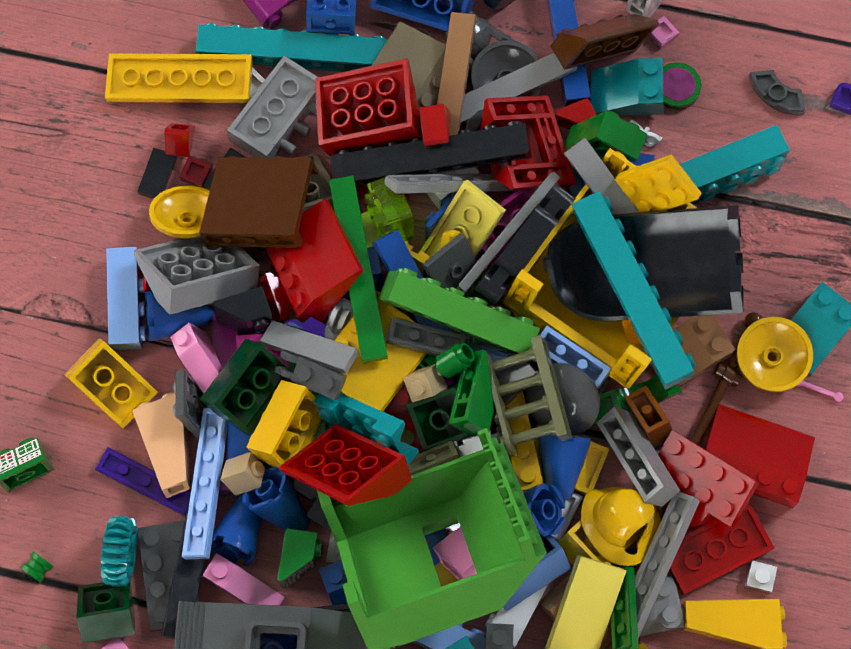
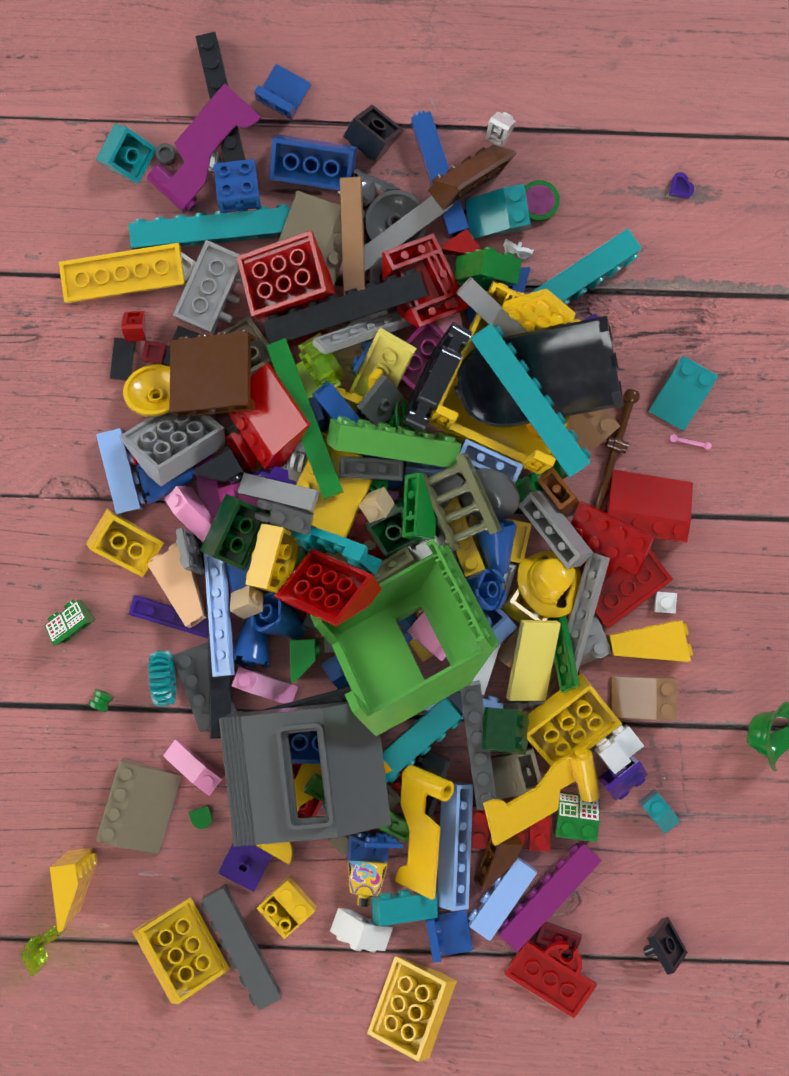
camera: 15 degrees left, 15 degrees up
(105, 611) = (161, 725): dark green slope -> none
(435, 124) = (345, 284): red slope -> none
(454, 360) = (397, 484): green brick -> none
(507, 233) = (421, 365): light grey tile -> none
(664, 33) = (523, 154): bright pink tile -> none
(777, 94) = (622, 192): dark grey tile -> none
(786, 342) = (666, 425): yellow dish -> none

